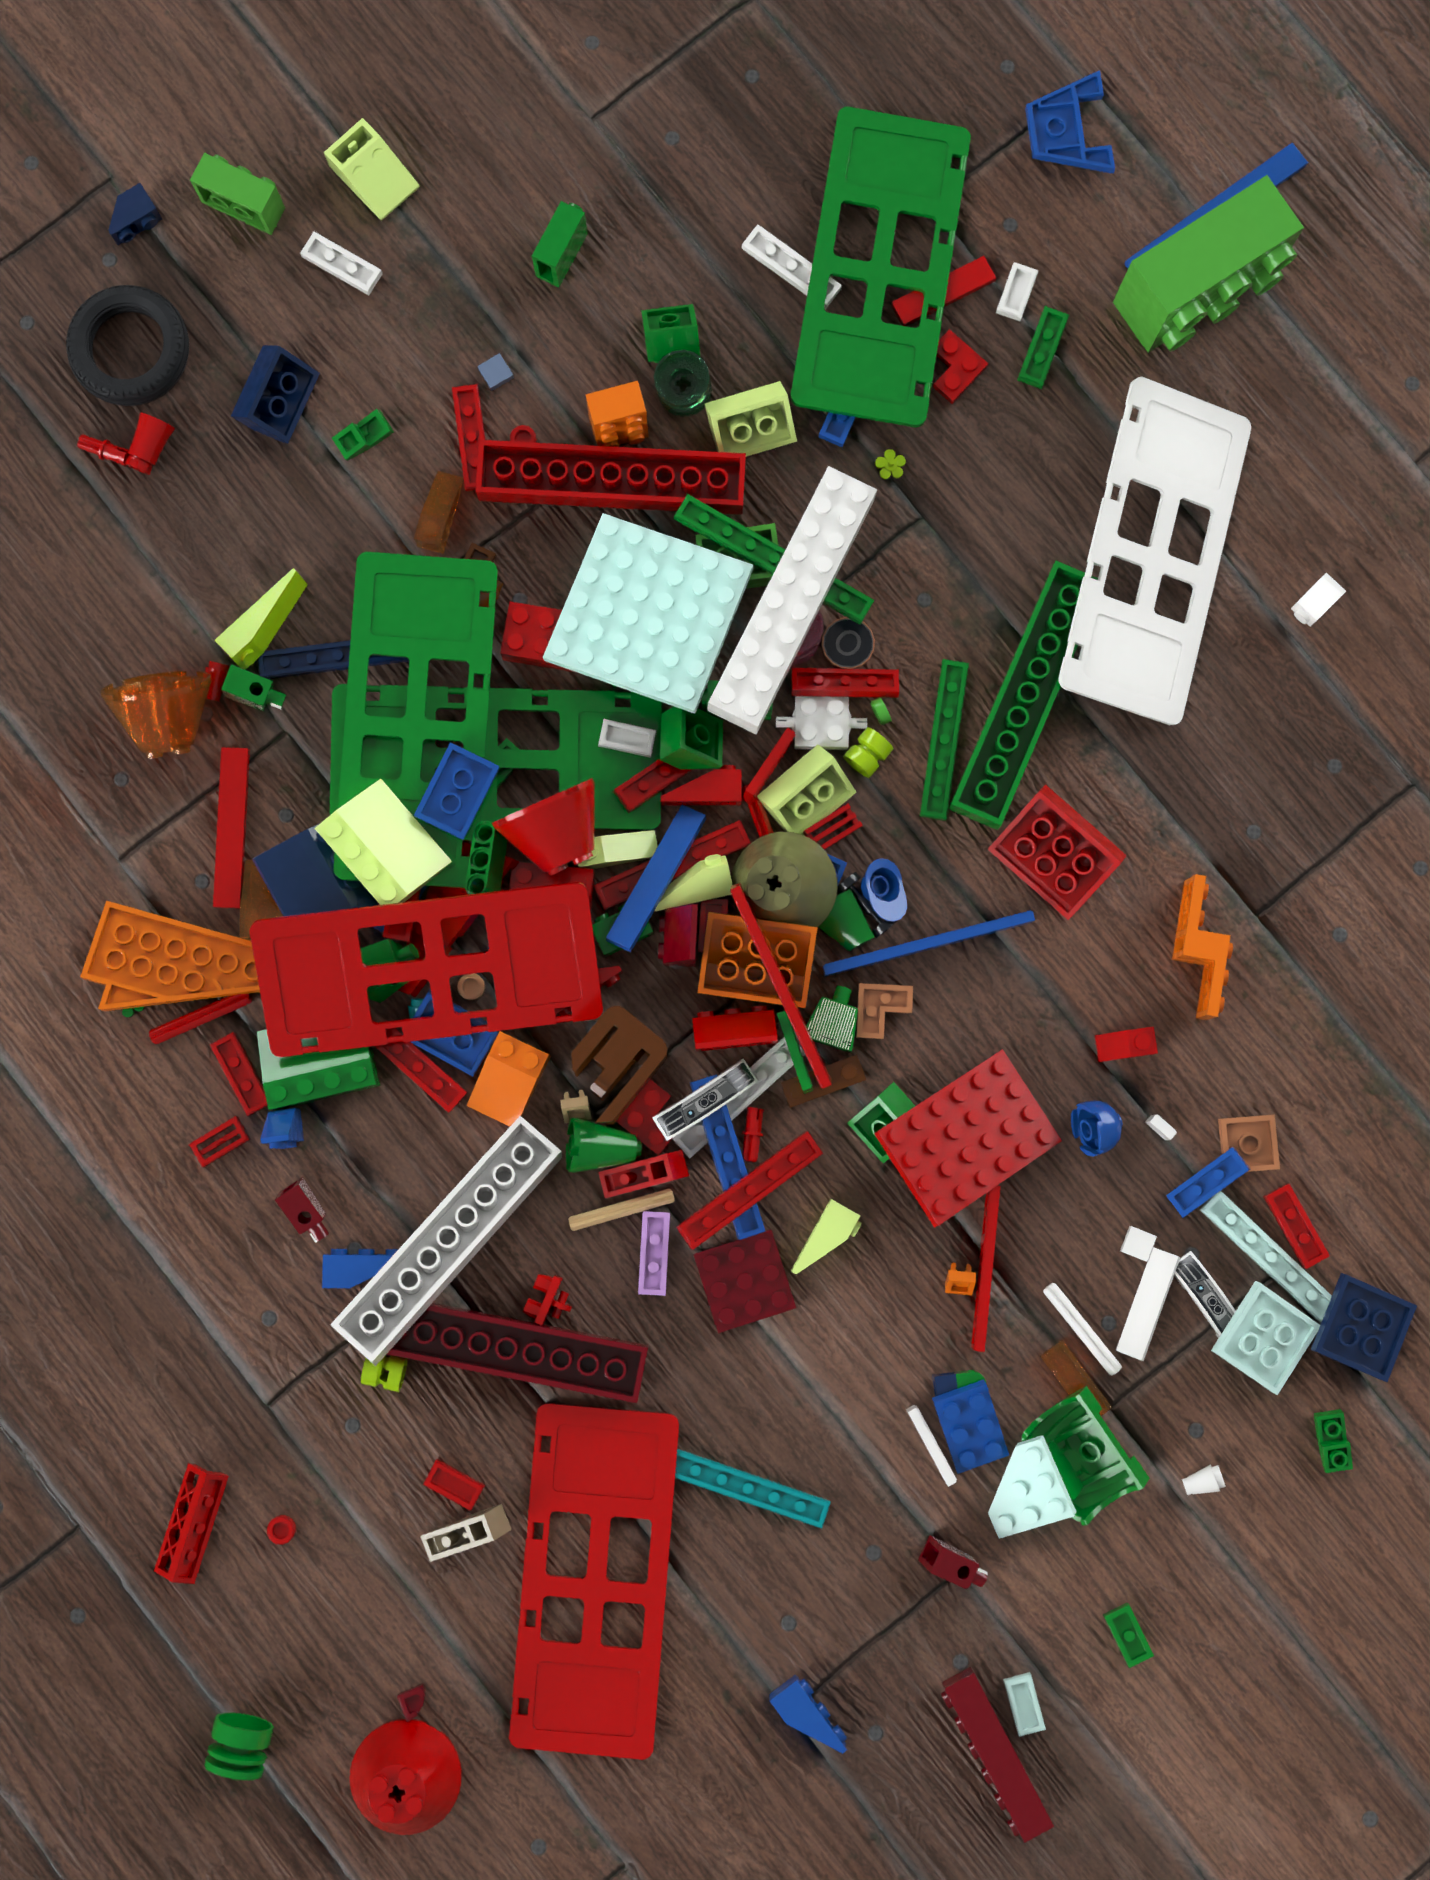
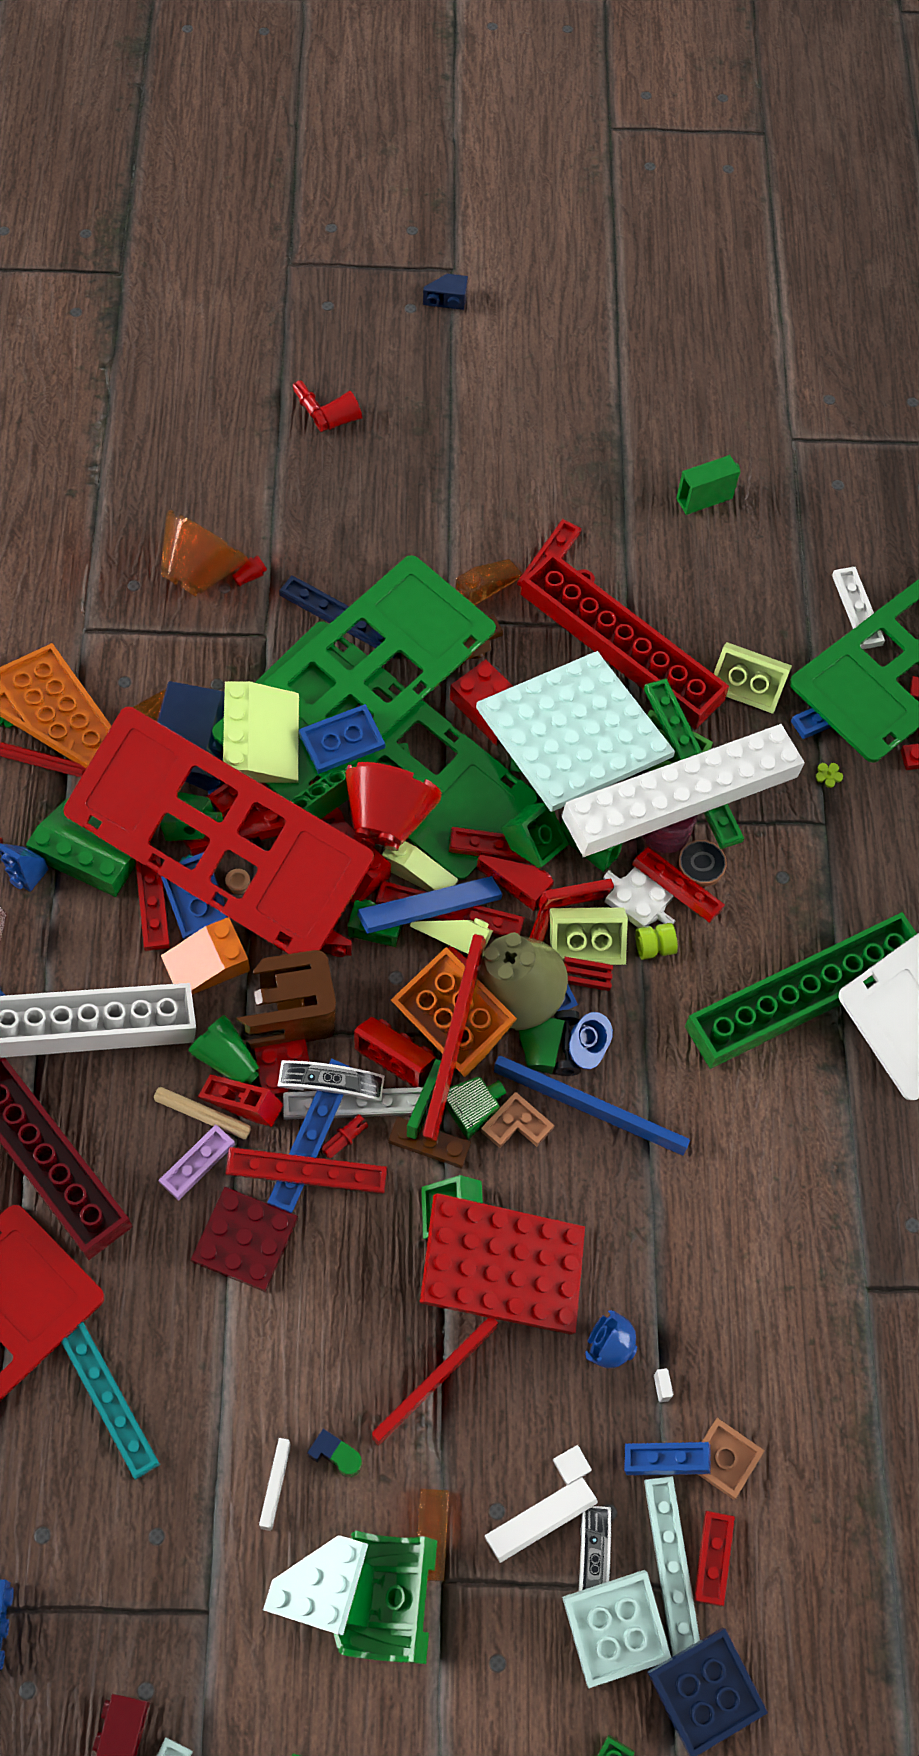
camera: 35 degrees right, 20 degrees down
(95, 313) = (376, 324): black tyre -> none
(231, 827) = (176, 661): red tile -> none
(238, 193) = (523, 321): bright green brick -> none
(240, 1073) = (31, 812): red tile -> none
(241, 683) = (265, 588): green torso -> none
(256, 628) = (312, 558): lime slope -> none
(275, 393) = (444, 443): dark blue slope -> none
(341, 263) = (554, 404): white plate -> none
(363, 435) = (474, 505): green slope -> none
(371, 169) = (620, 366): yellowish green slope -> none
(495, 372) = (599, 530): sand blue tile -> none
(540, 1310) = (92, 1134): red hips -> none
(575, 1107) = (232, 1010): tan tile -> none
(618, 415) = (660, 599): orange brick -> none
(627, 738) = (490, 804): white tile -> none
(669, 331) = (738, 588): green slope -> none
(680, 936) = (413, 955): dark red slope -> none
(681, 368) = (721, 617): clear green wheel -> none
(830, 1231) = (339, 1253): yellowish green slope -> none
(880, 711) = (688, 922): bright green tile -> none
(944, 740) = (720, 977): green tile -> none
(951, 1564) = (204, 1583): dark red torso -> none
(959, 1281) = (406, 1374): orange tile -> none
(970, 1426) = (317, 1494): blue plate -> none
(1057, 852) = (743, 1117): red slope -> none
(1082, 1329) = (472, 1496): white axle -> none
(1126, 1044) = (686, 1299): red slope -> none
(1202, 948) = (804, 1271): orange bracket -> none
(1204, 1481) = (470, 1710): white cone -> none

